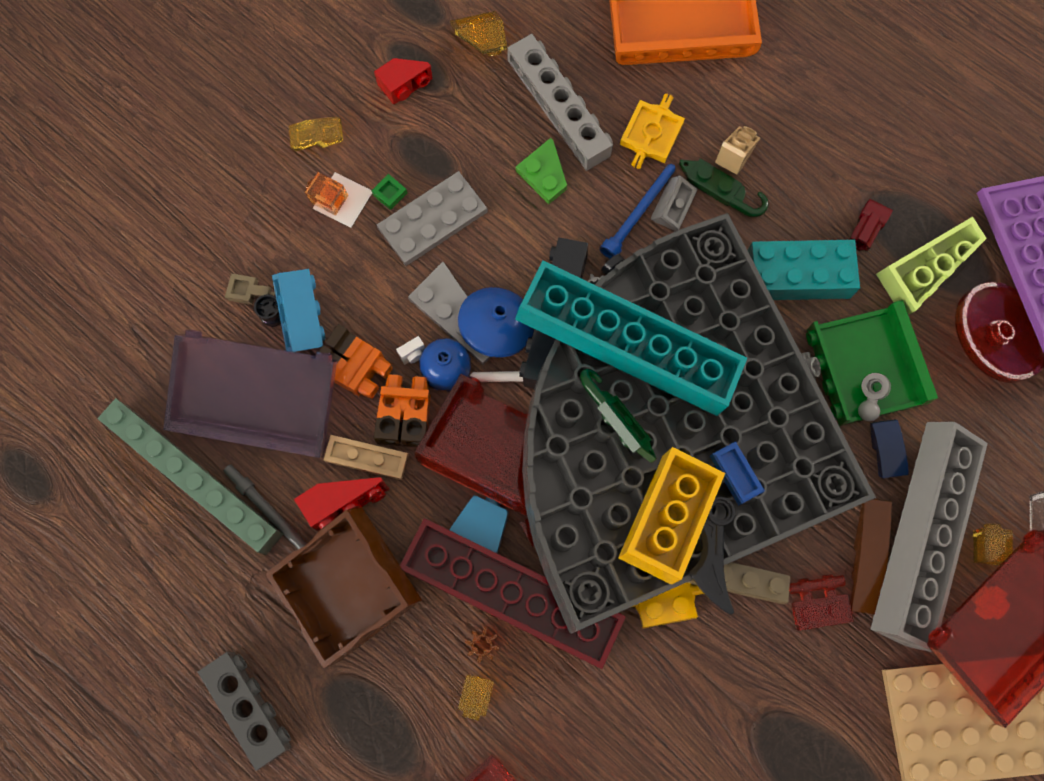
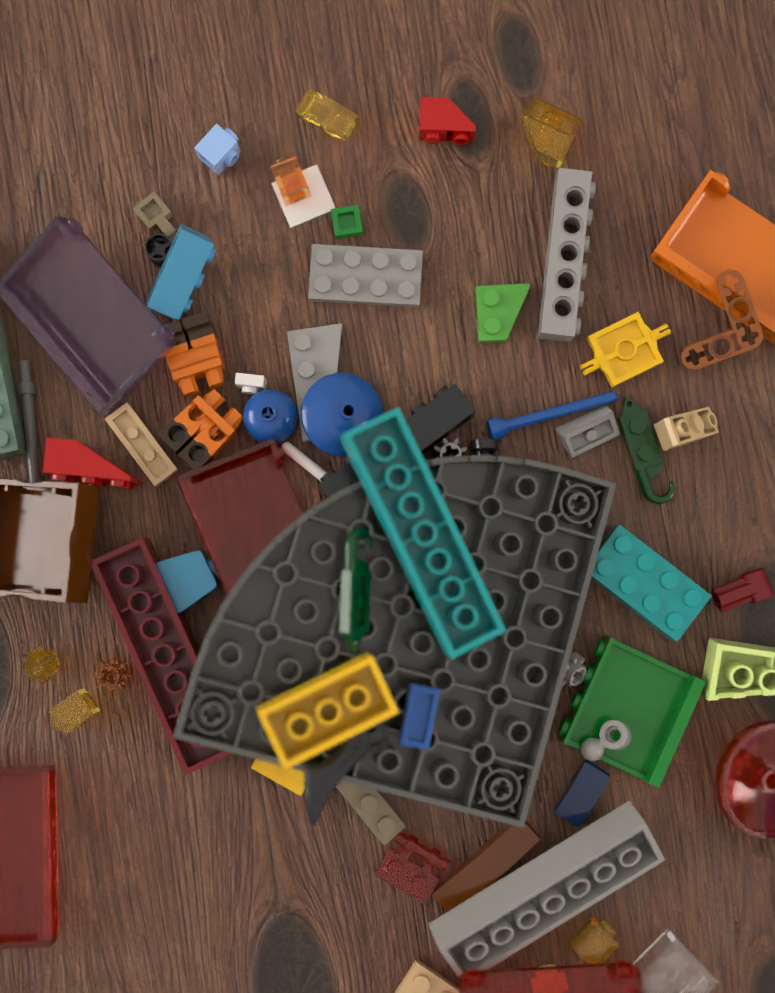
camera: 40 degrees right, 10 degrees up
(256, 211) = (218, 149): none -> light blue brick
(421, 681) = (41, 664): none -> clear yellow gear
(716, 64) = (734, 334): none -> dark orange beam

